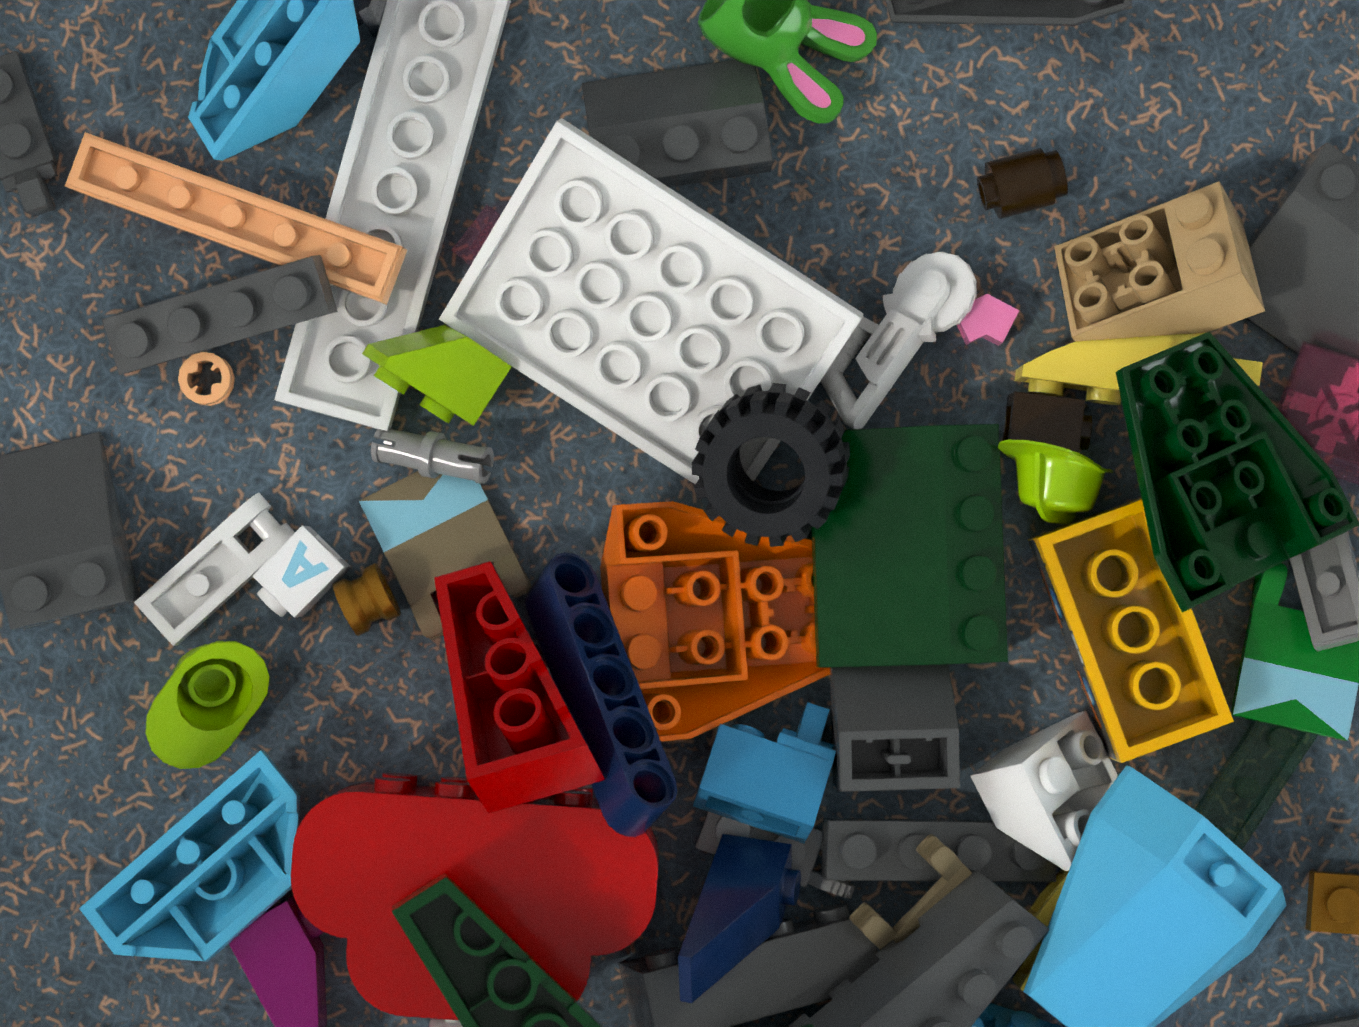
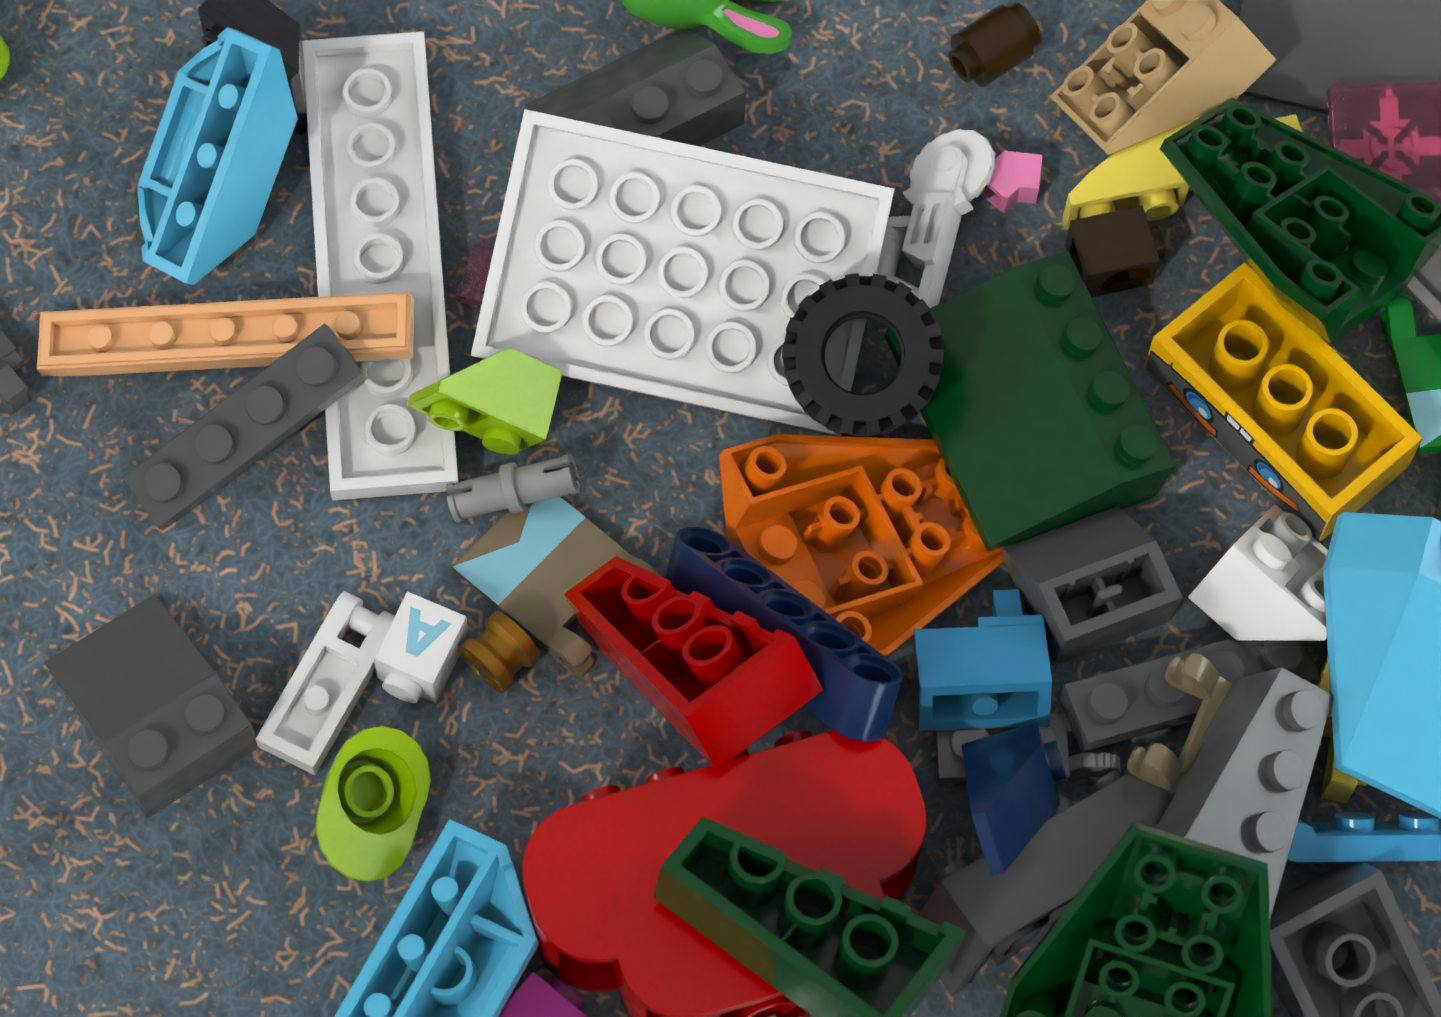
camera: 25 degrees left, 20 degrees down
(193, 366) = (231, 499): light nougat bush -> none
(1054, 479) = (1141, 276): lime piece -> none

